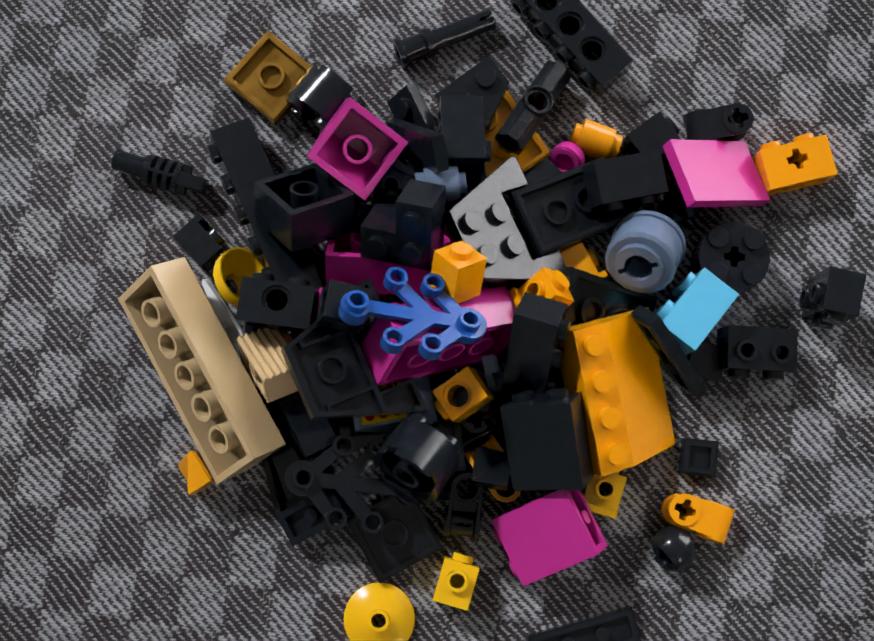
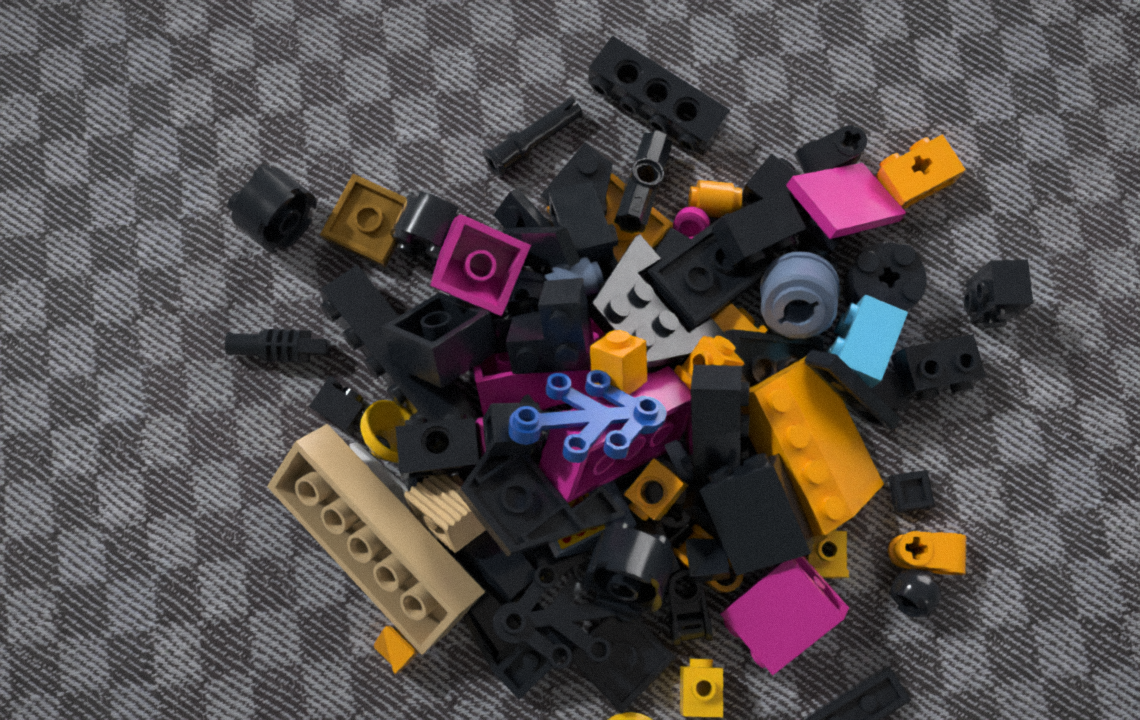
camera: 15 degrees left, 5 degrees down
(185, 44) = (272, 208): none -> black brick

